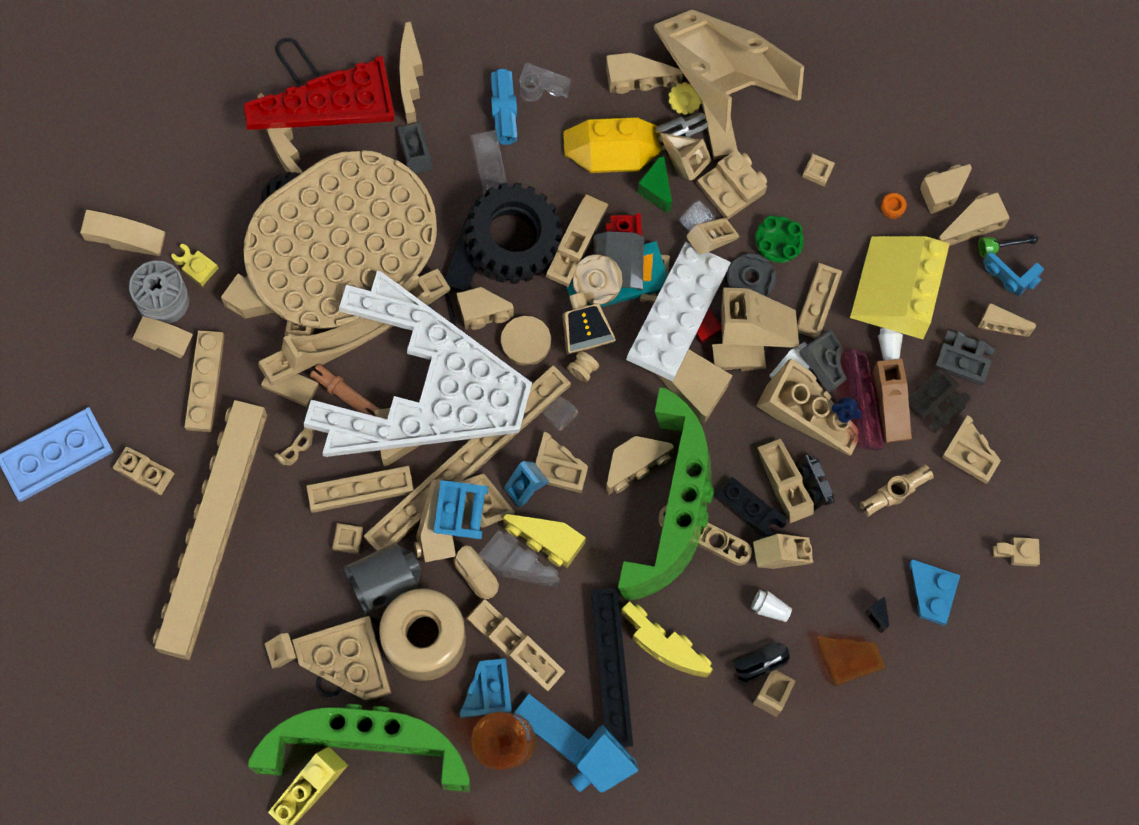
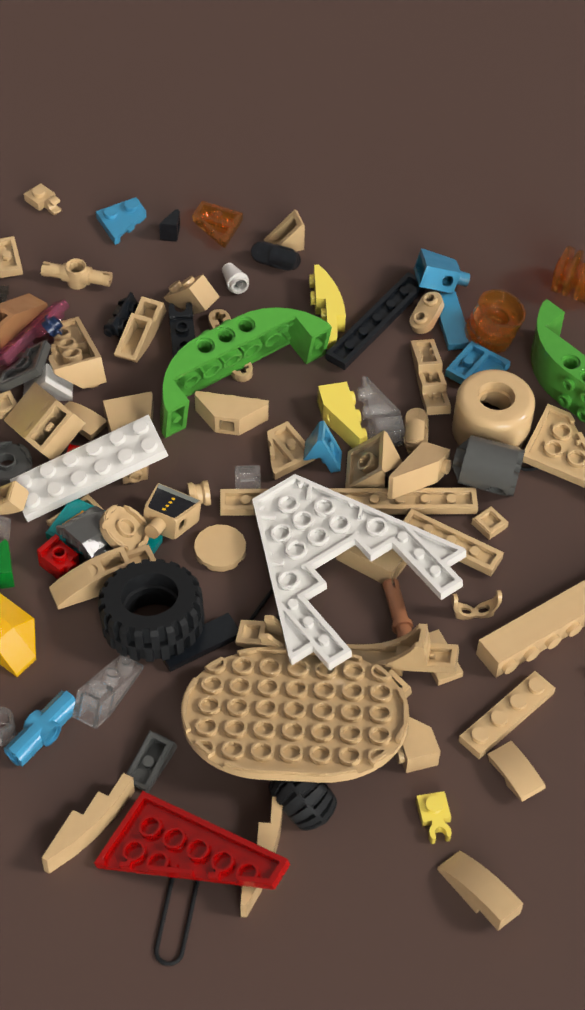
camera: 135 degrees left, 20 degrees down
(164, 304) = (490, 800): light grey wheel -> none
(451, 509) = (399, 452): dark azure plate -> none
(483, 307) = (231, 589): tan slope -> none
(577, 712) = (429, 309): none -> tan plate

